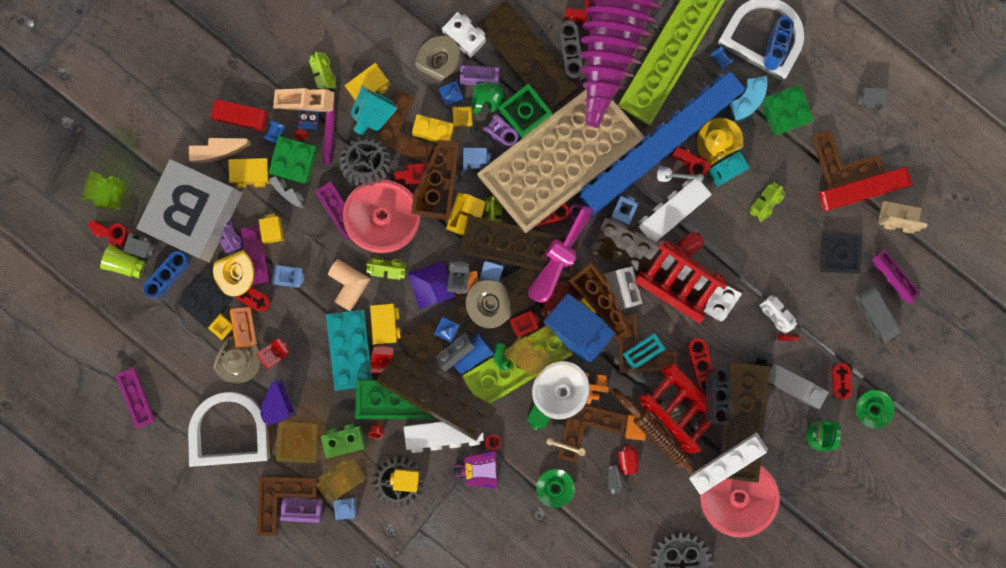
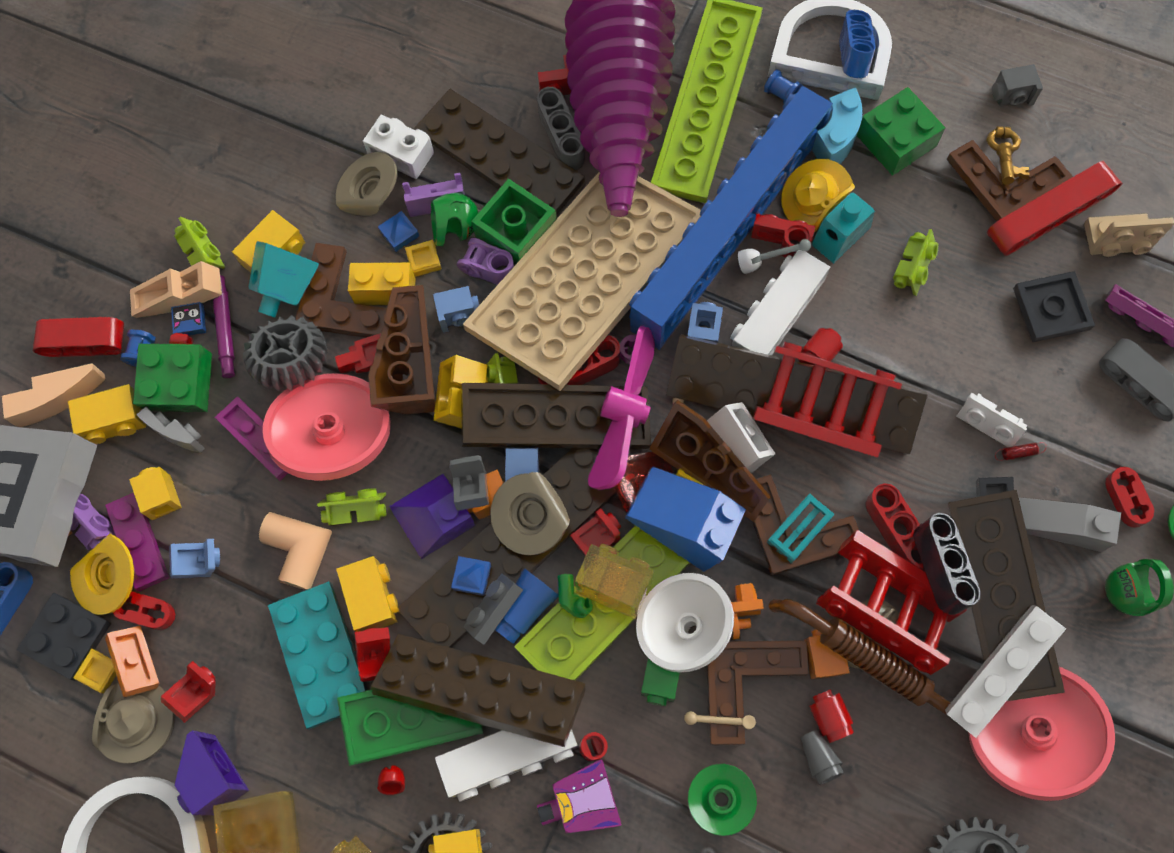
camera: 10 degrees left, 15 degrees down
(343, 441) = (337, 813): bright green brick -> none
(848, 142) = (1005, 152): none -> pearl gold piece

